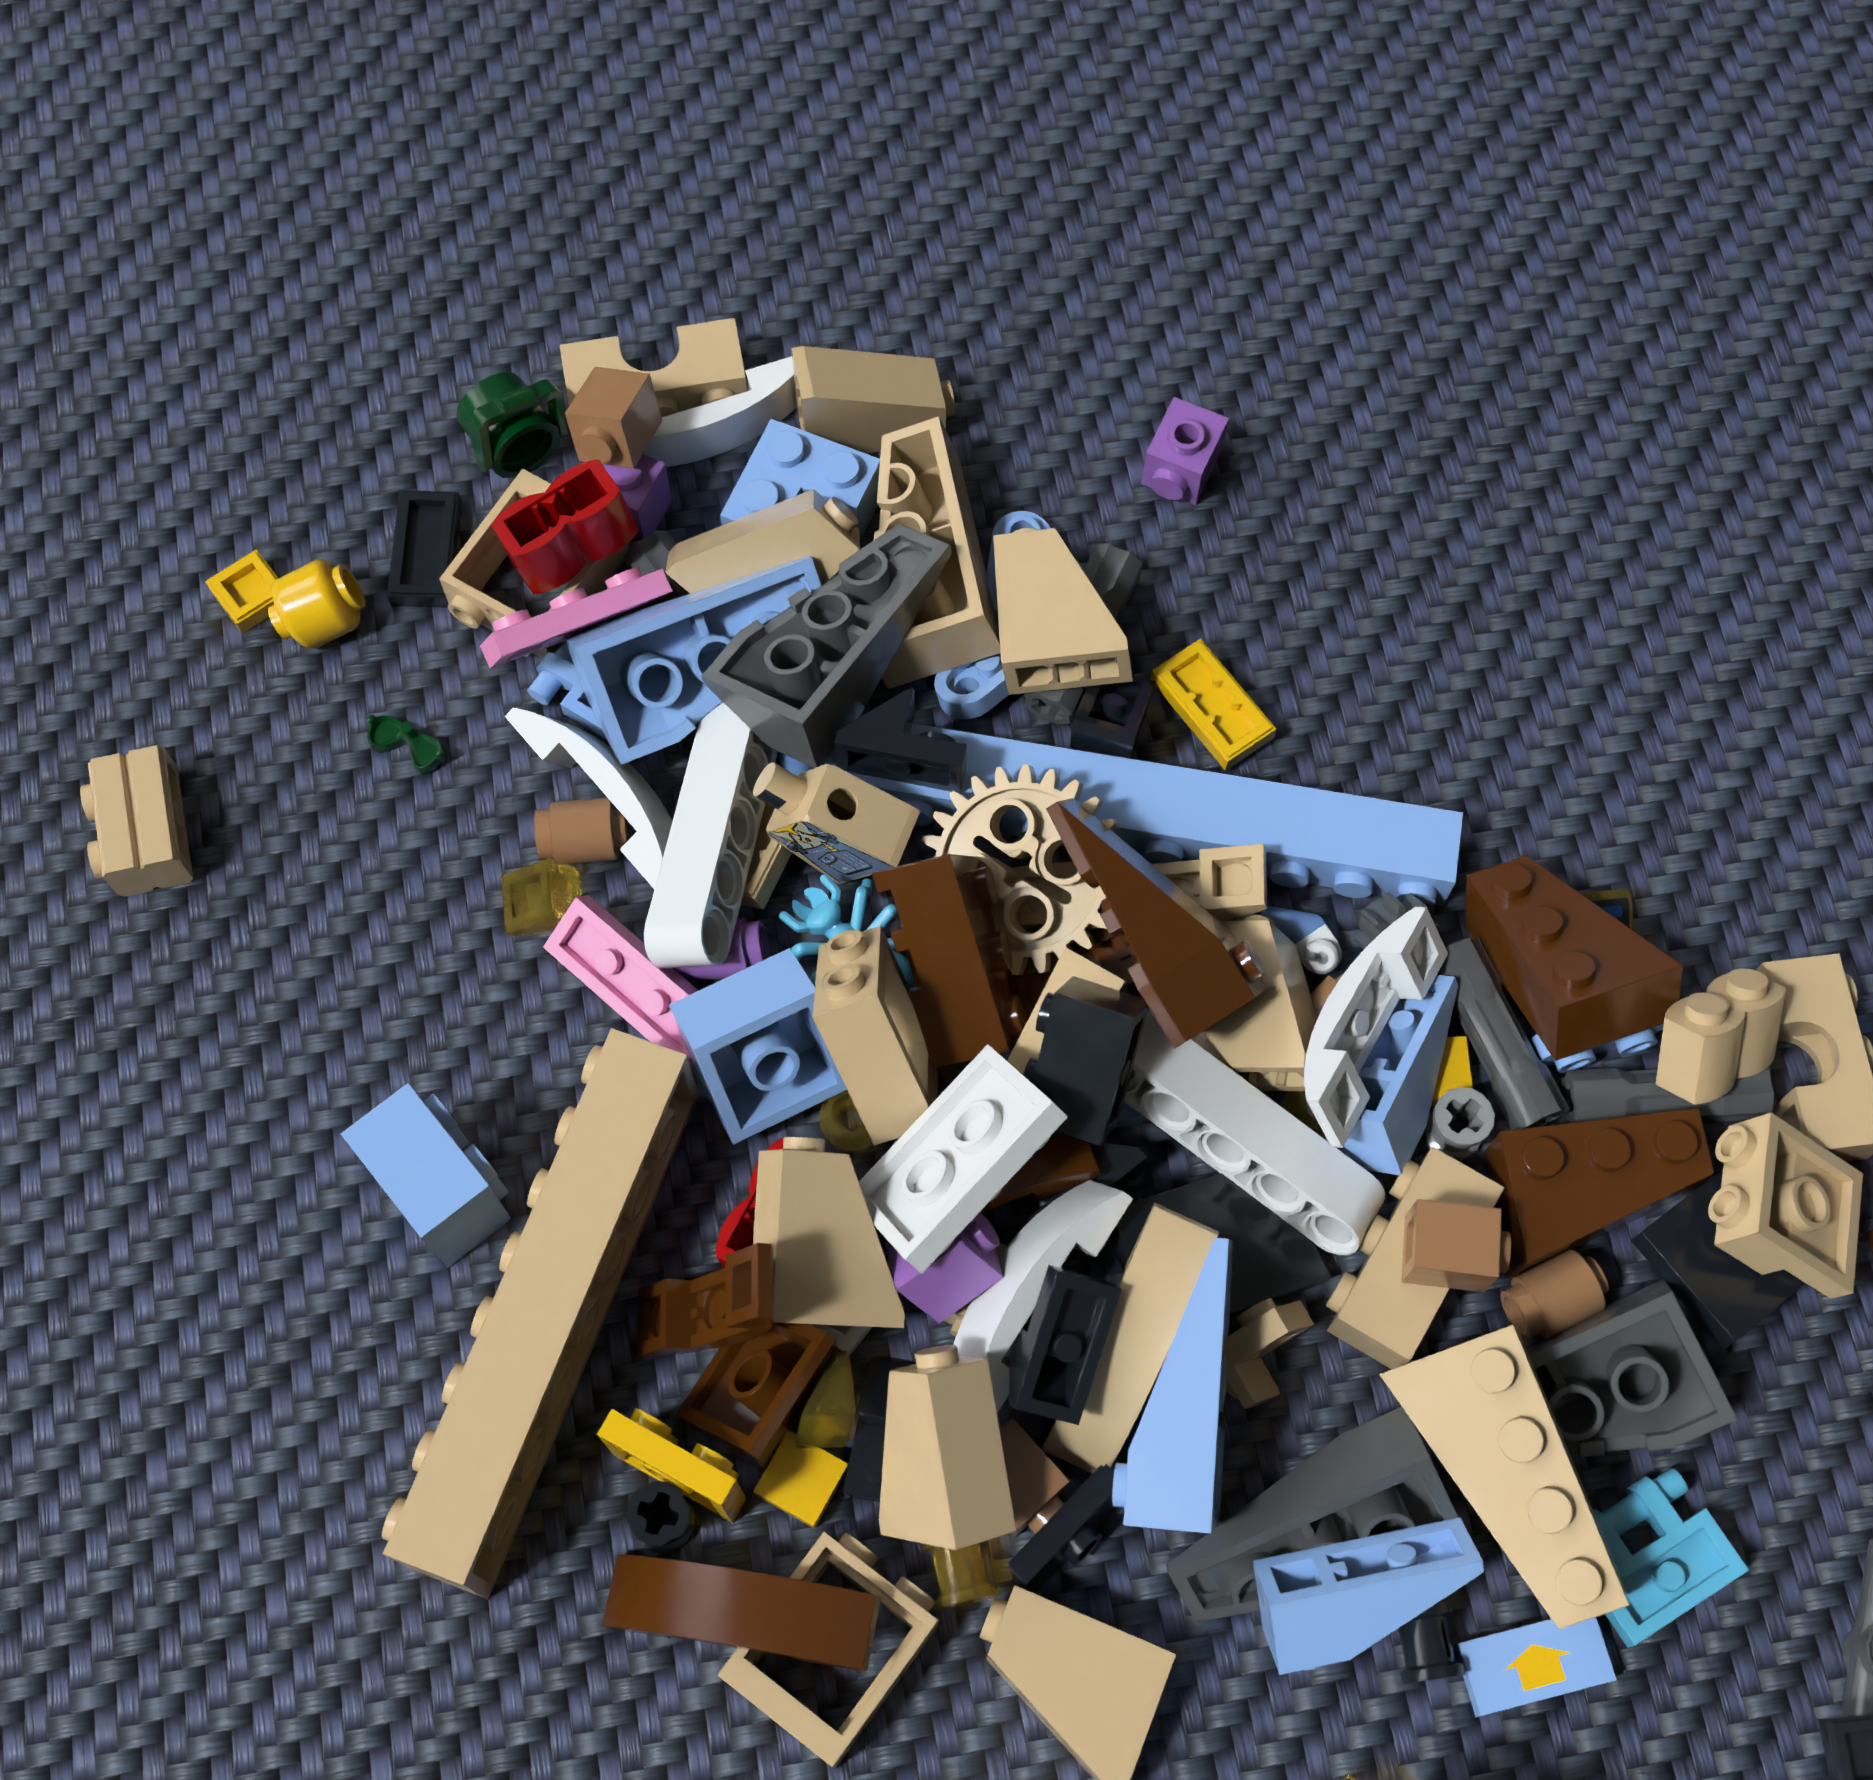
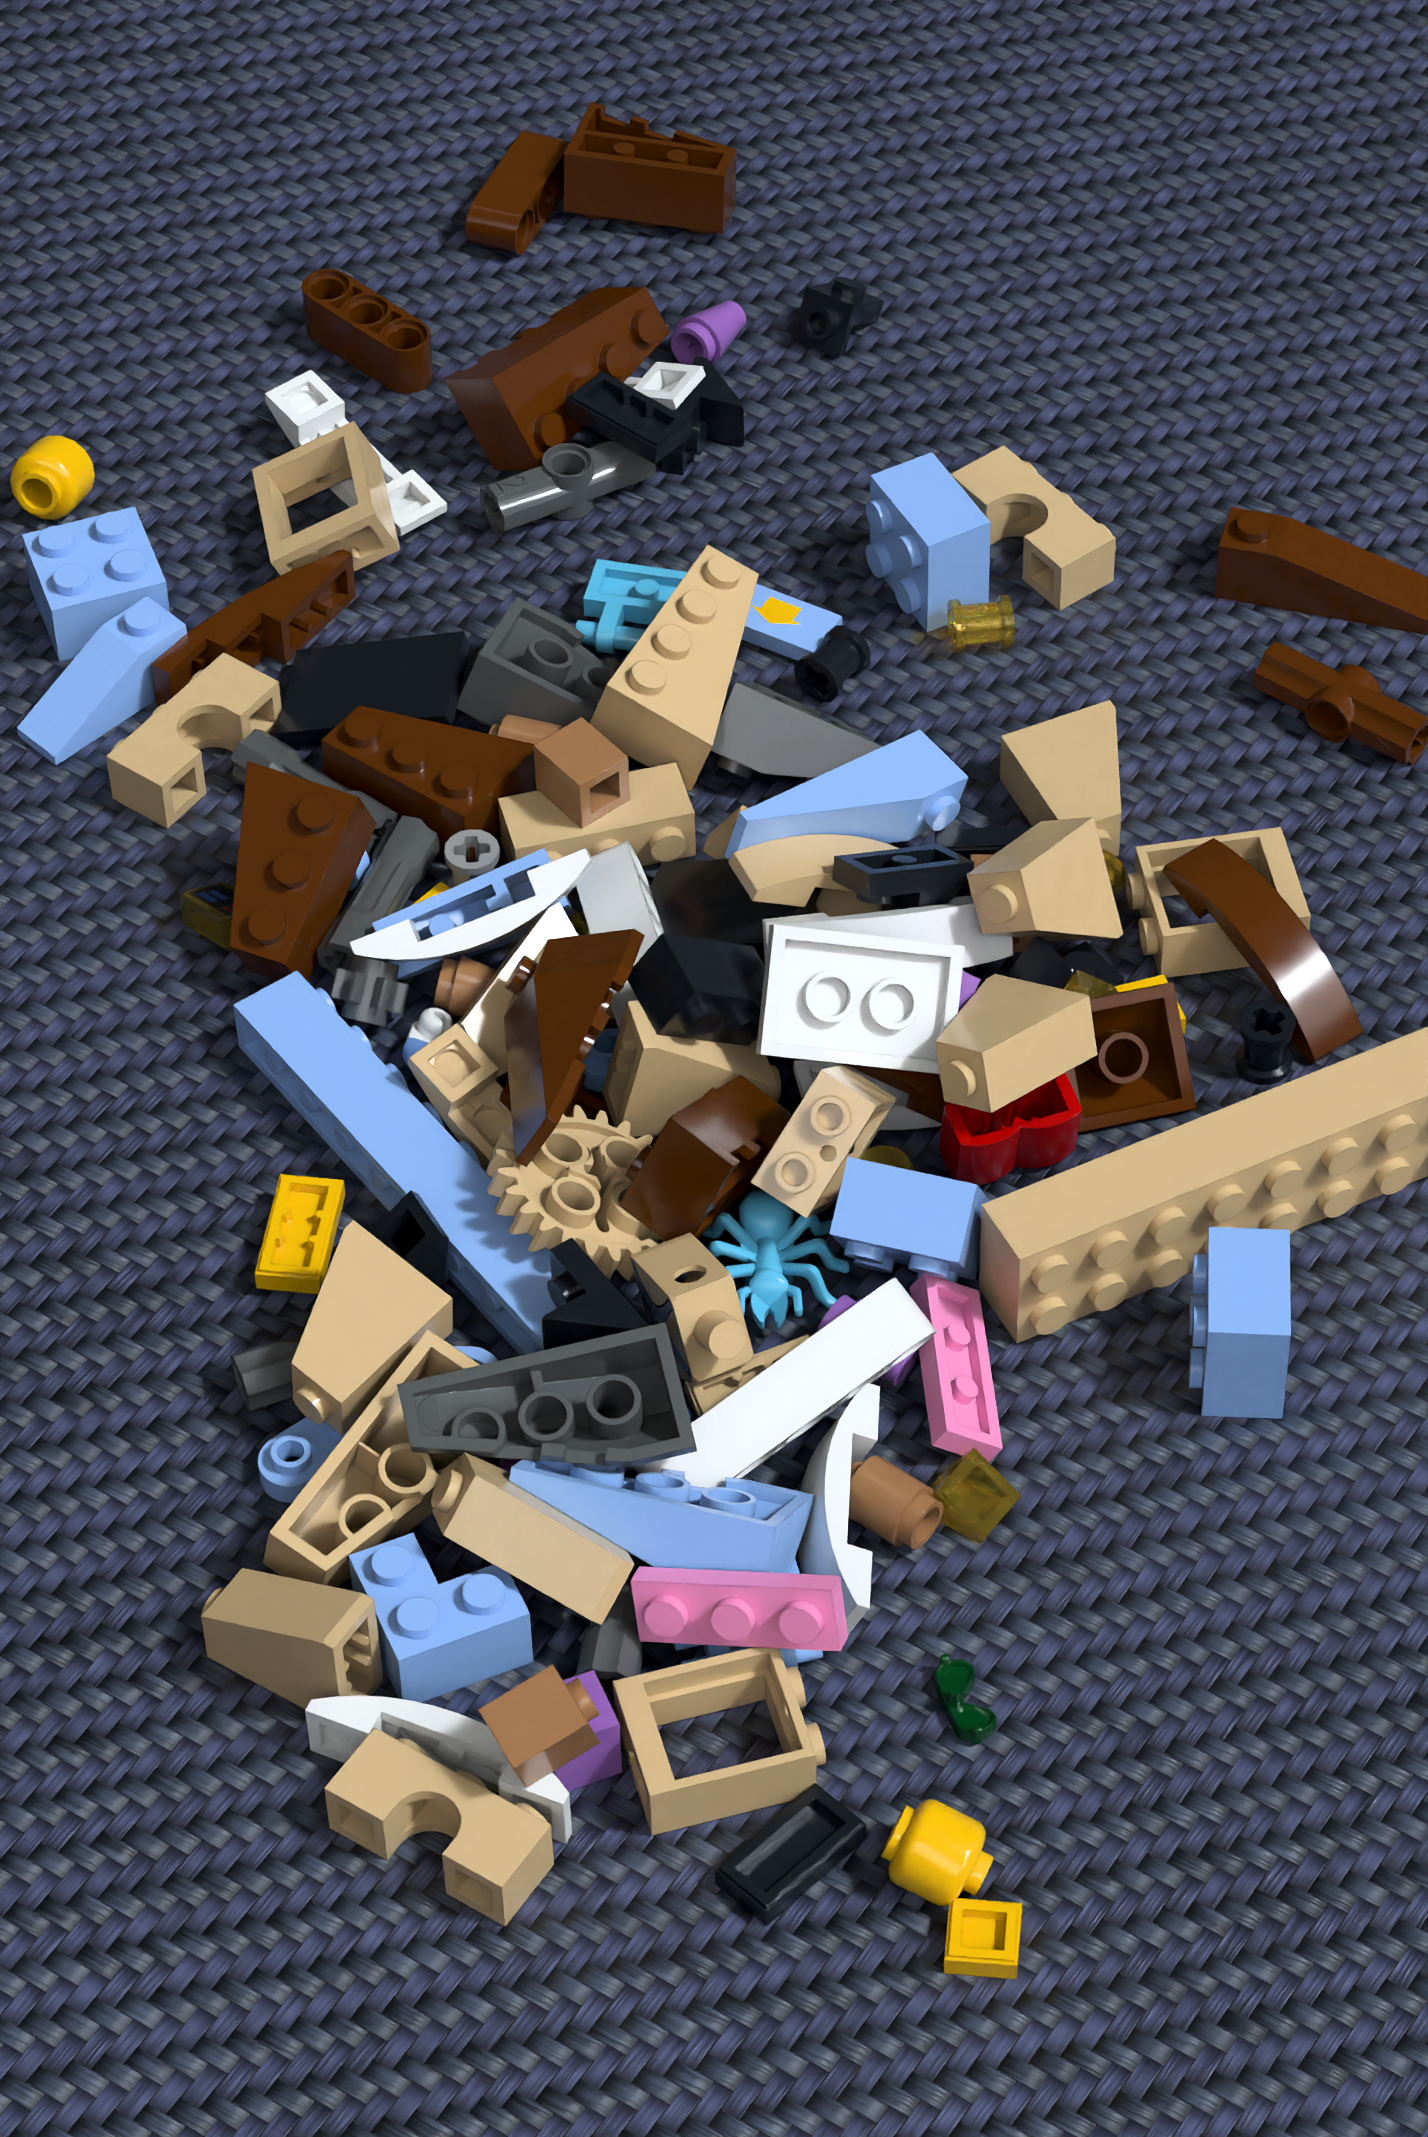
camera: 135 degrees left, 20 degrees down
(137, 821) = (1253, 1784): tan brick -> none
(510, 424) = (613, 1868): dark green piece -> none
(570, 524) = (668, 1655): red brick -> none
(654, 1451) = (1227, 1030): yellow plate -> none
(708, 1310) = (1098, 1053): reddish brown slope -> none
(1184, 451) = (88, 1415): medium lavender brick -> none
(1350, 1594) = (841, 687): light blue slope -> none
(1720, 1035) = (218, 757): tan brick -> none
(1787, 1205) = (340, 663): tan plate -> none

